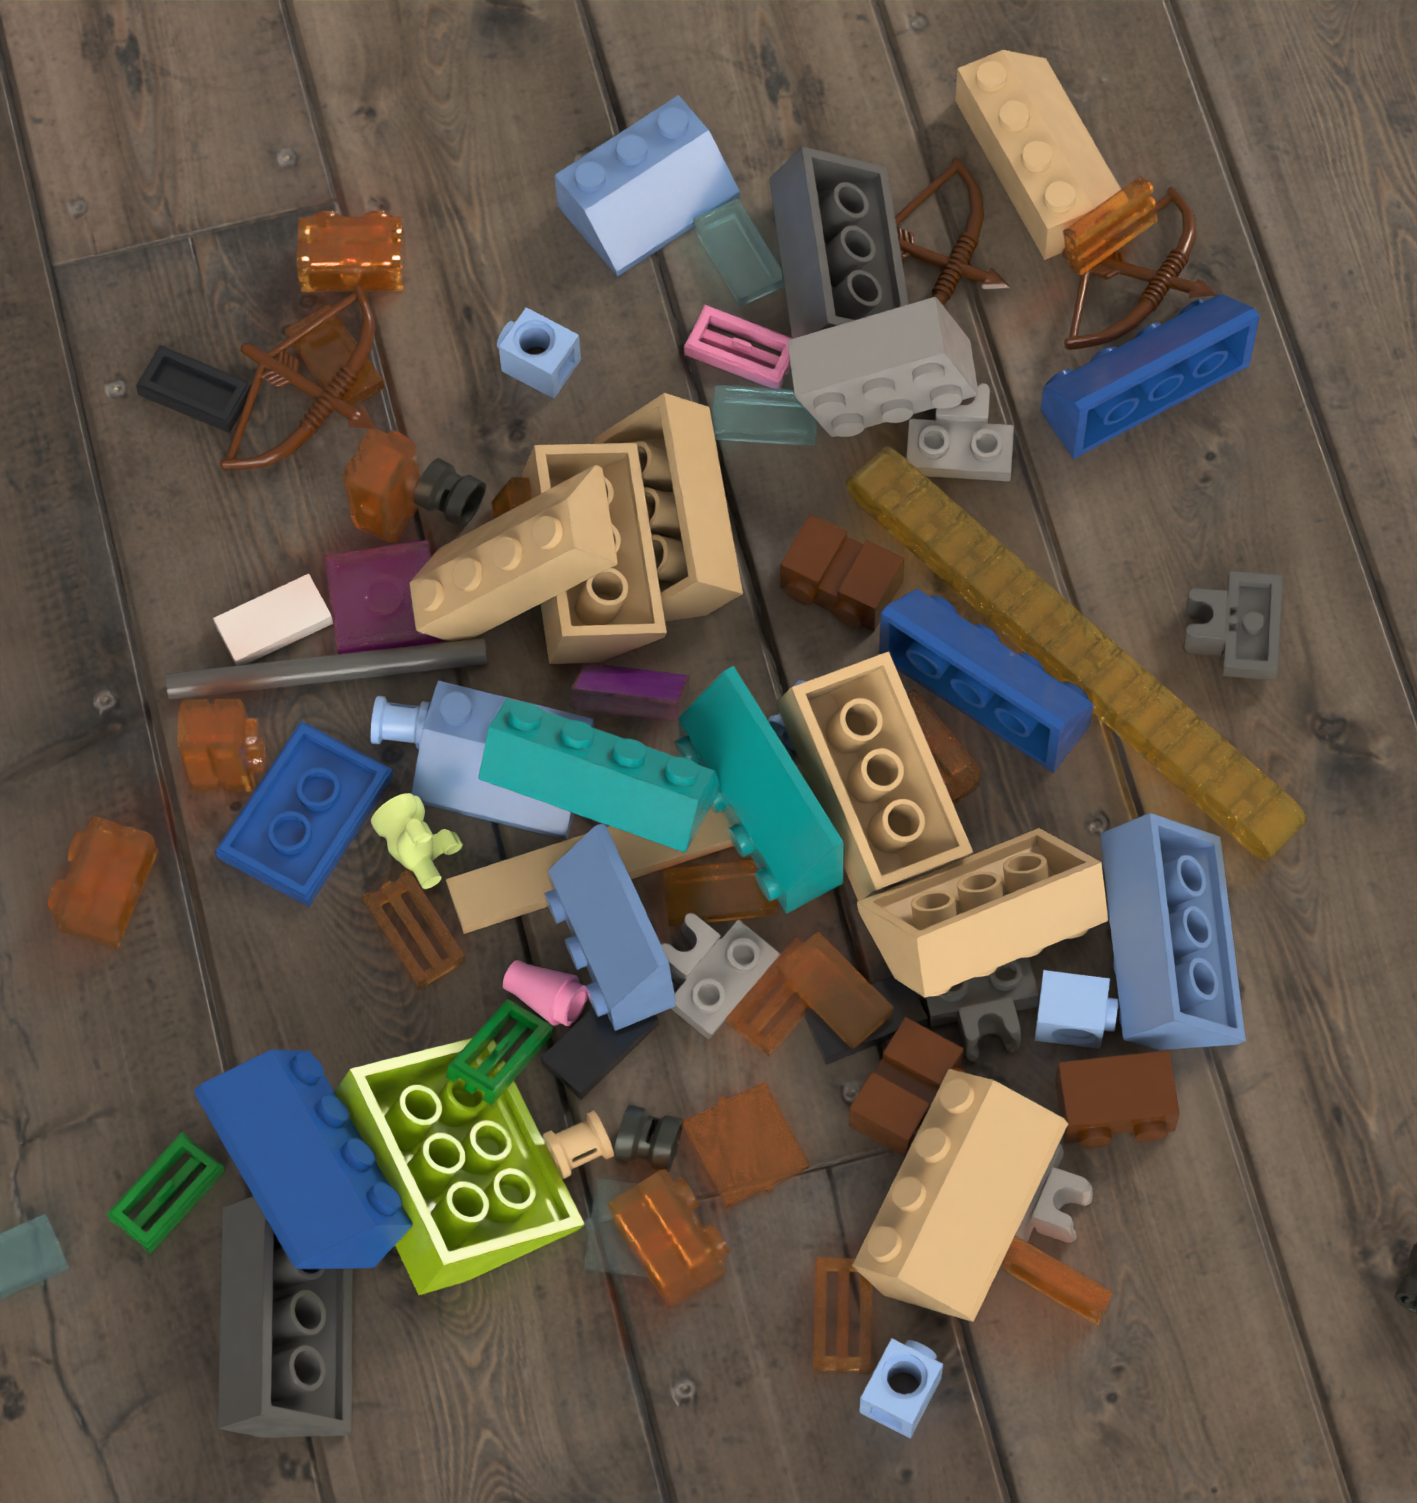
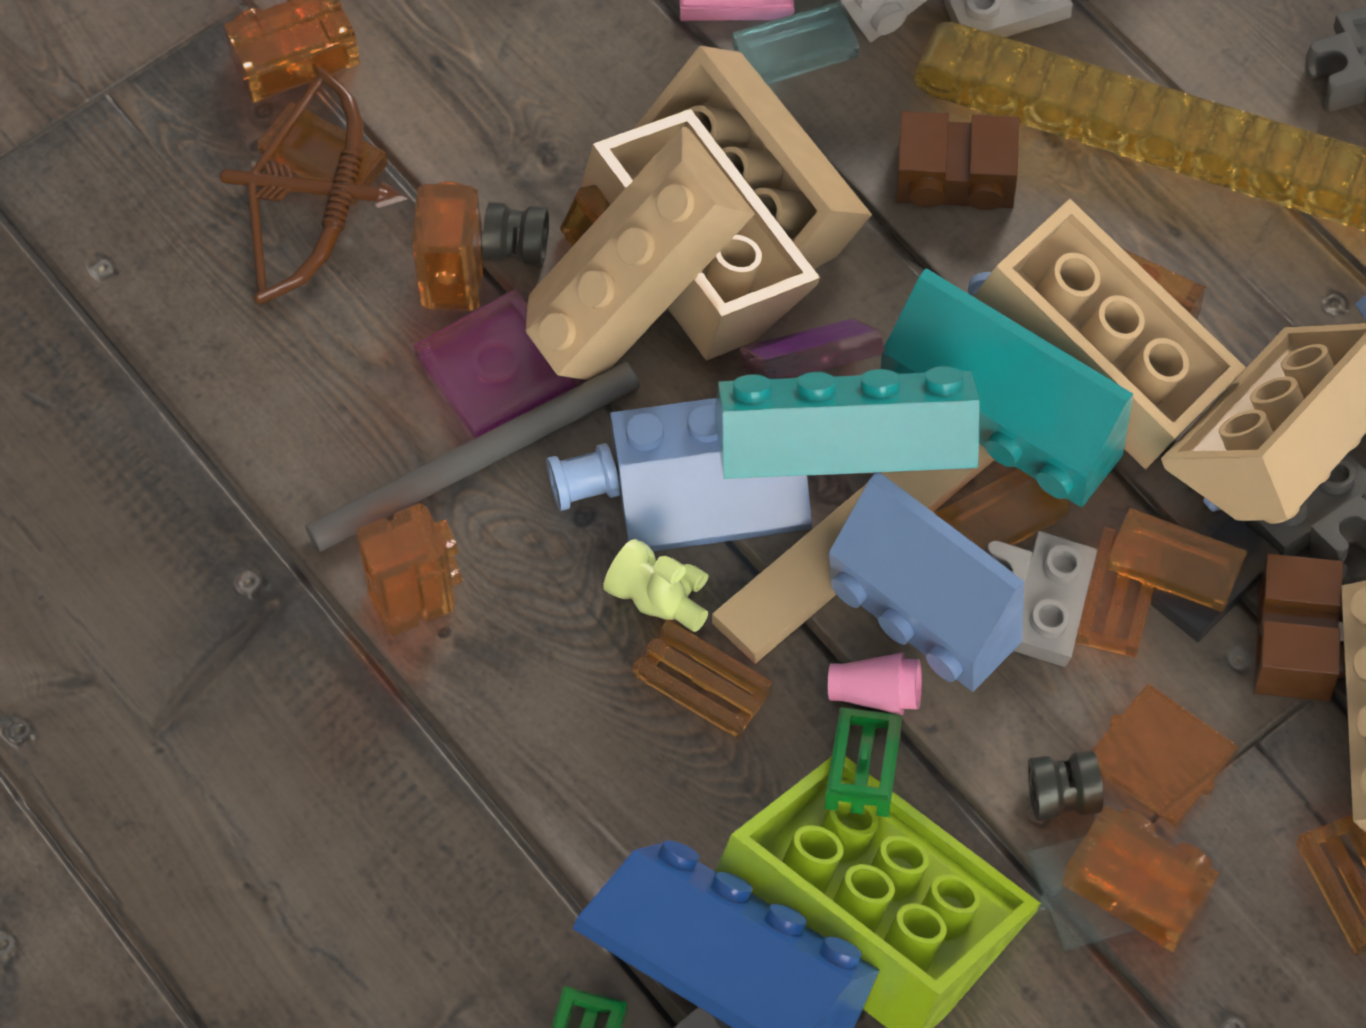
camera: 25 degrees left, 5 degrees down
(102, 882) = (347, 761): clear orange brick -> none
(194, 388) = (188, 236): black tile -> none
(273, 620) = (391, 430): white tile -> none
(304, 813) = (524, 610): blue tile -> none
(543, 371) = (542, 86): light blue brick -> none
(578, 1144) = (996, 821): tan bush -> none
(593, 1050) = (954, 724): black tile -> none
(984, 677) = (1164, 204): blue slope -> none

